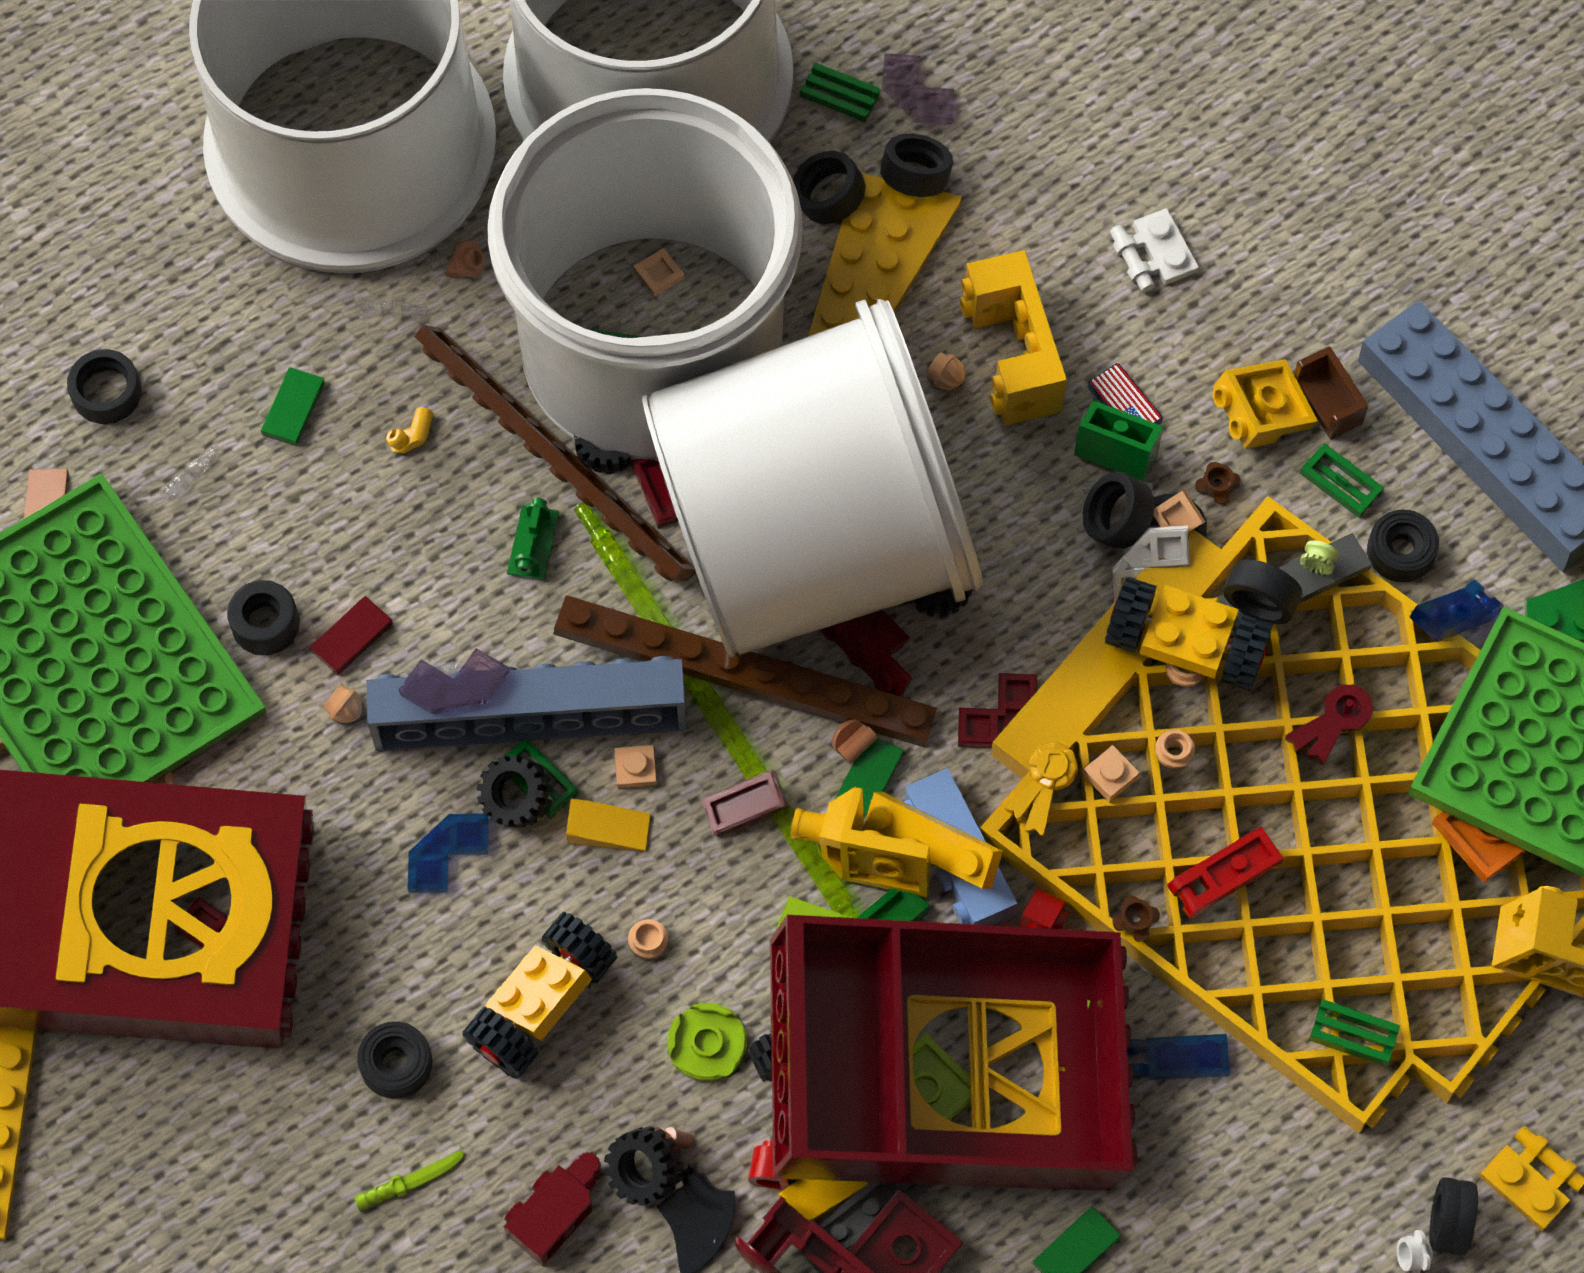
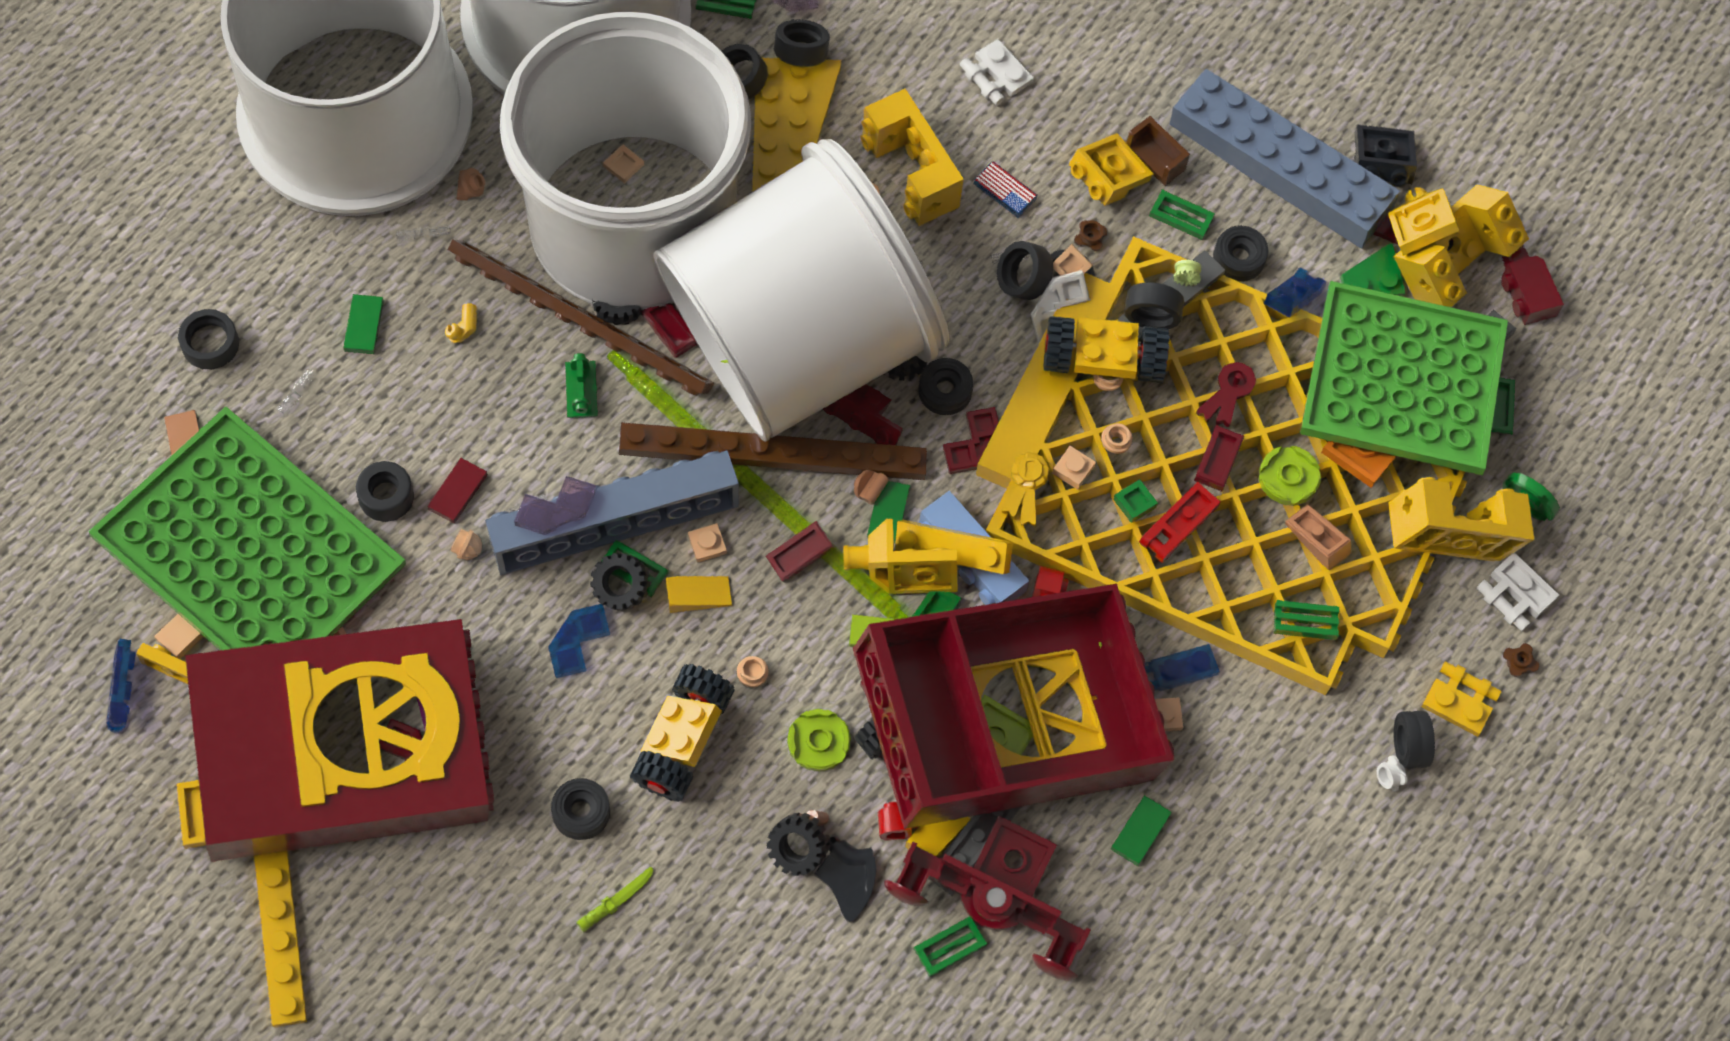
camera: 20 degrees left, 0 degrees up
(554, 1208) = (737, 893): dark red hinge -> none
(981, 614) = (945, 370): none -> black tyre
(1118, 440) = (1010, 218): green brick -> none
(1136, 907) = (1122, 563): reddish brown plate -> none
(1150, 1110) = (1171, 712): none -> light nougat plate
(1176, 833) = (1135, 501): none -> green plate
(1299, 802) = (1219, 458): none -> dark red tile
(1384, 844) = (1289, 475): none -> lime tile
(1401, 930) = (1320, 536): none -> nougat slope

